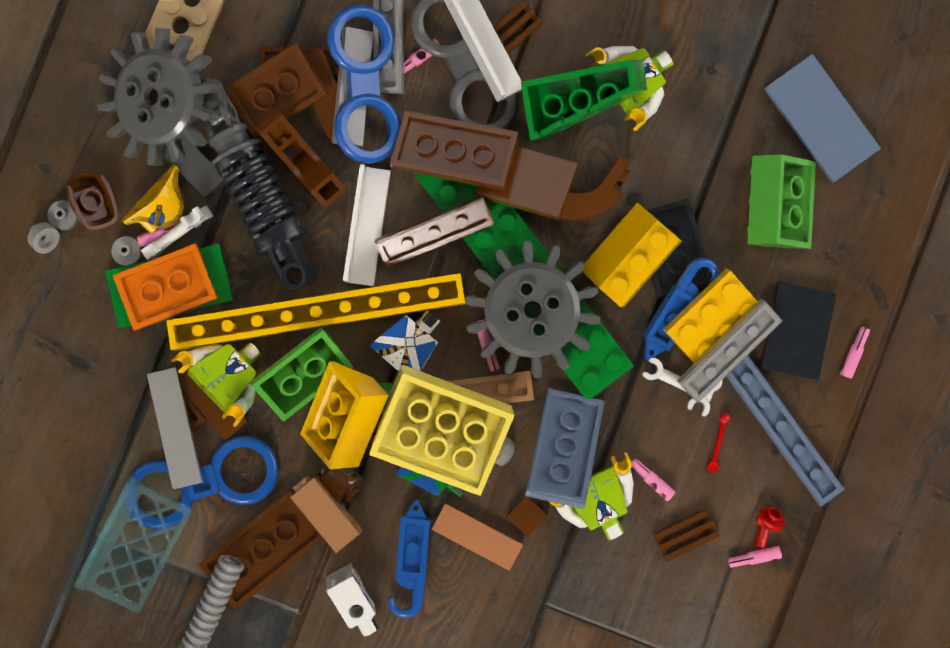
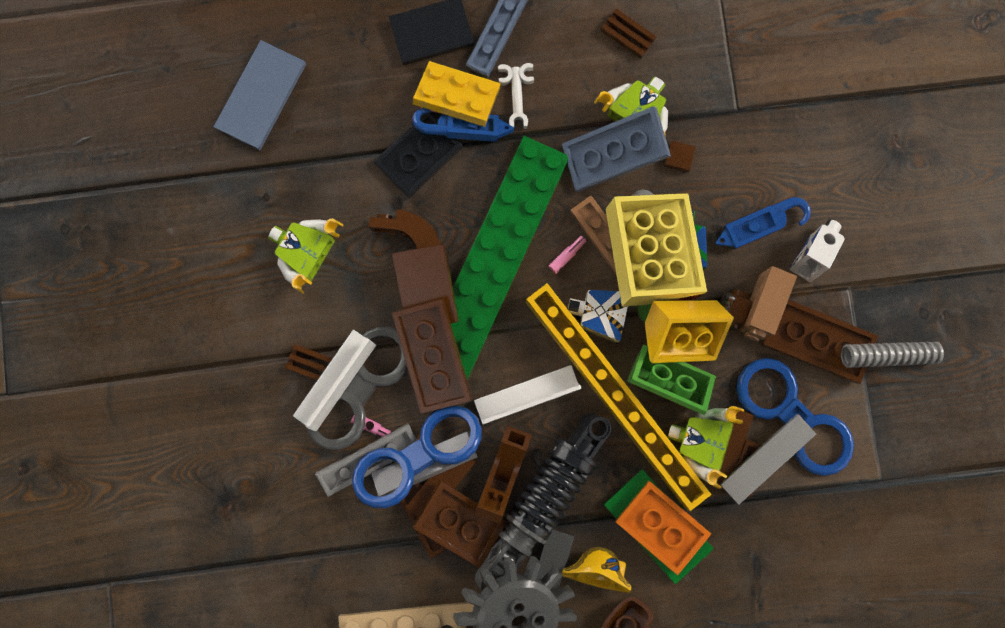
camera: 120 degrees left, 5 degrees down
(107, 541) = (876, 465): clear light blue fence -> none
(133, 252) = (643, 573): light grey tile -> none
(147, 238) = (631, 564): bright pink piece -> none
(187, 222) = (606, 539): white bar -> none
(434, 231) = (503, 338): tile -> none
(477, 536) = (716, 185): nougat tile -> none
(518, 335) = (524, 255): dark grey gear -> none
(574, 96) = (343, 288): green wedge -> none
(630, 255) = (441, 180): yellow slope -> none
(653, 480) = (601, 76): bright pink pin -> none
(713, 466) = (566, 41): red hinge -> none
(729, 350) = (474, 69): light grey tile -> none
(781, 201) = (340, 91): bright green slope -> none

